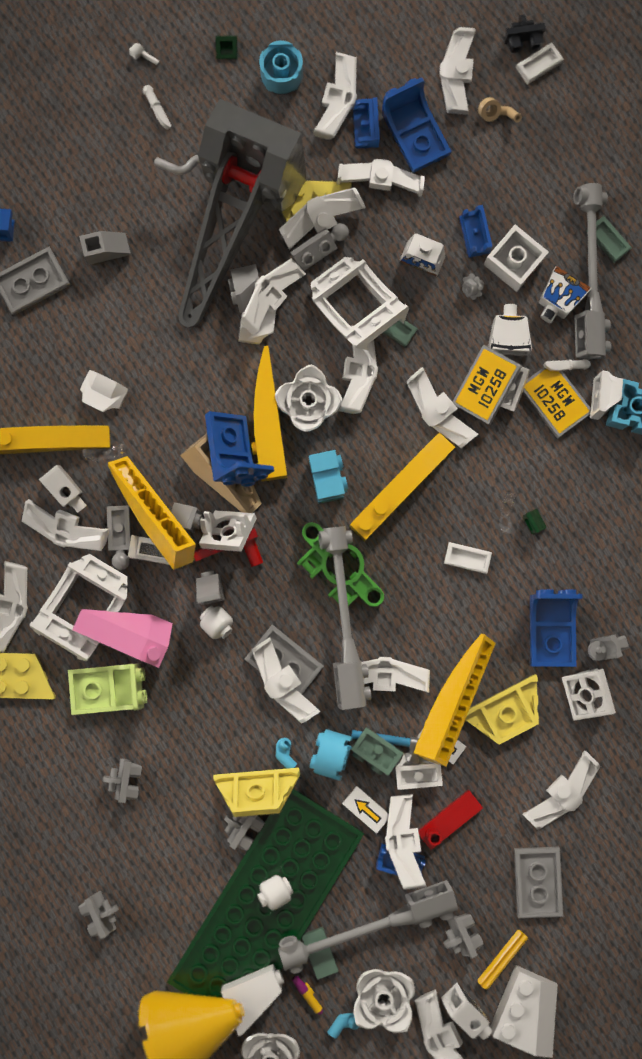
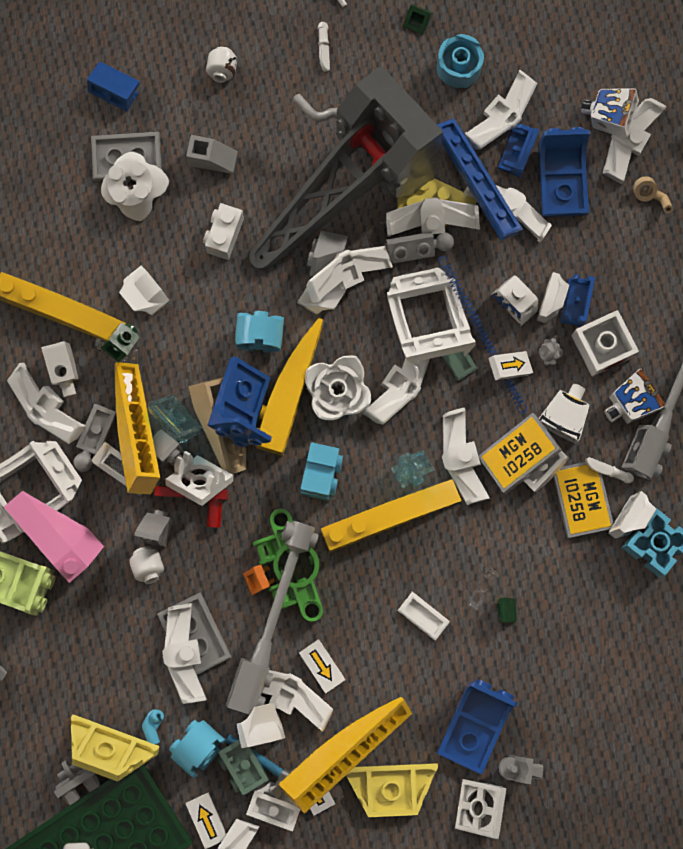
camera: 25 degrees right, 5 degrees down
(64, 296) = (149, 180): none -> white brick
(75, 162) = (222, 64): none -> white head
(104, 443) = (121, 341): none -> dark green brick
(147, 308) = (224, 231): none -> white brick
(182, 488) = (175, 418): none -> clear light blue slope
(218, 381) = (259, 332): none -> medium azure brick
(315, 591) = (257, 579): none -> orange tile
(348, 166) = (479, 180): none -> blue tile
(376, 713) = (261, 726): none -> white slope
(402, 439) = (412, 469): none -> clear light blue brick
(402, 638) = (322, 666): none -> white tile
(409, 297) = (482, 327): none -> blue piece
(431, 52) = (612, 110): none -> torso
(445, 313) = (510, 365): none -> white tile
(455, 238) = (553, 298): none -> white slope

